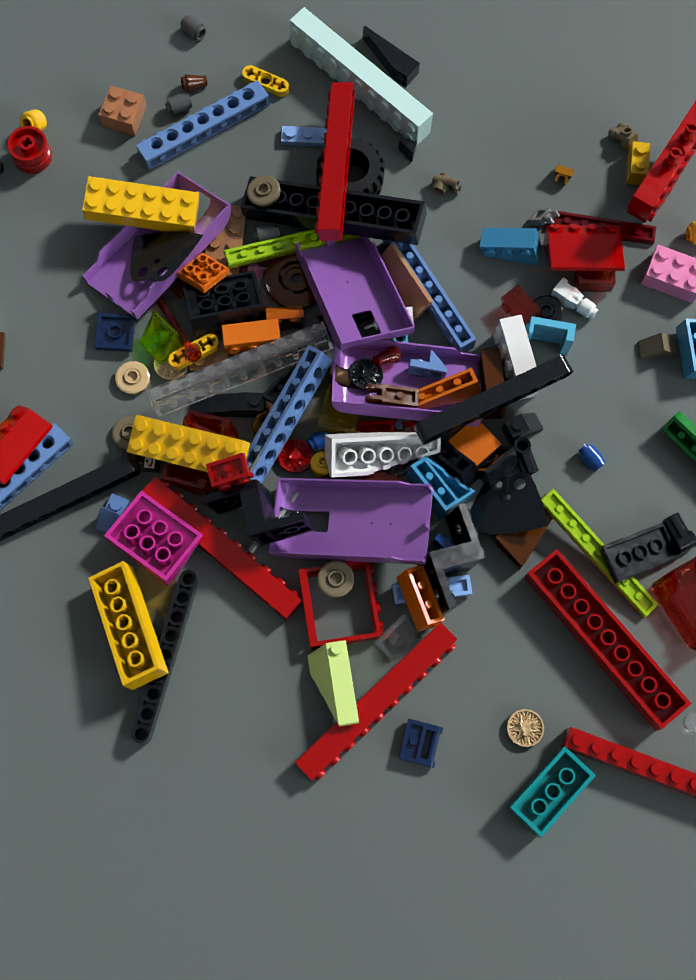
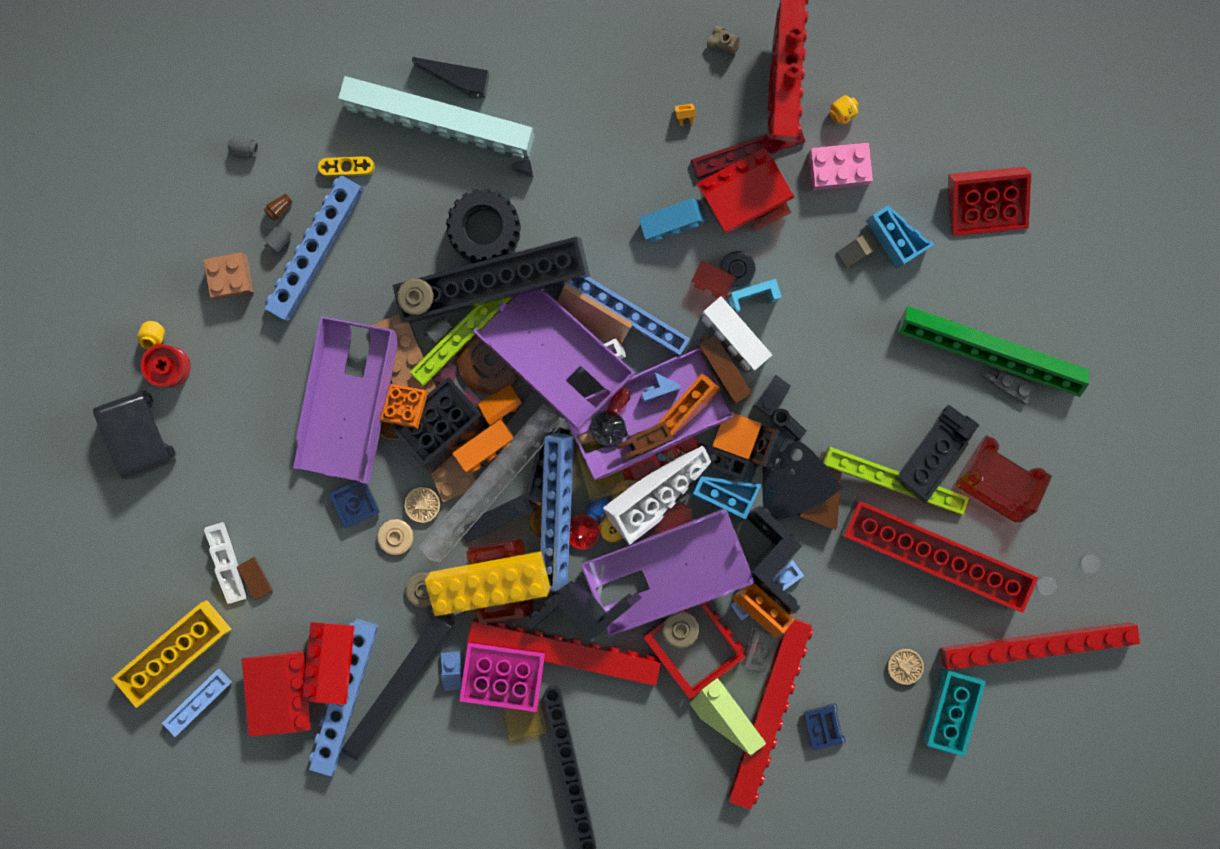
camera: 20 degrees left, 15 degrees up
(128, 626) = (525, 765): yellow brick -> none
(140, 205) = (309, 374): yellow brick -> none
(160, 338) = (401, 491): clear neon green slope -> none
(168, 246) = (355, 399): black piece -> none
(191, 351) = (439, 491): clear red piece -> none
(208, 350) = (426, 495): yellow beam -> none
(229, 471) = (540, 594): red bracket -> none
(303, 136) = (428, 200): light blue plate -> none
(336, 162) = (468, 232): red brick -> none
(442, 541) = (757, 543): blue plate -> none
(444, 182) = (575, 187): dark tan plate -> none
(493, 399) = (738, 396): black beam -> none
(543, 216) = (688, 172): light grey plate -> none
(572, 298) = (757, 243): white piece -> none
(591, 457) = (848, 392): blue brick -> none
(637, 163) = (751, 65): yellow piece -> none

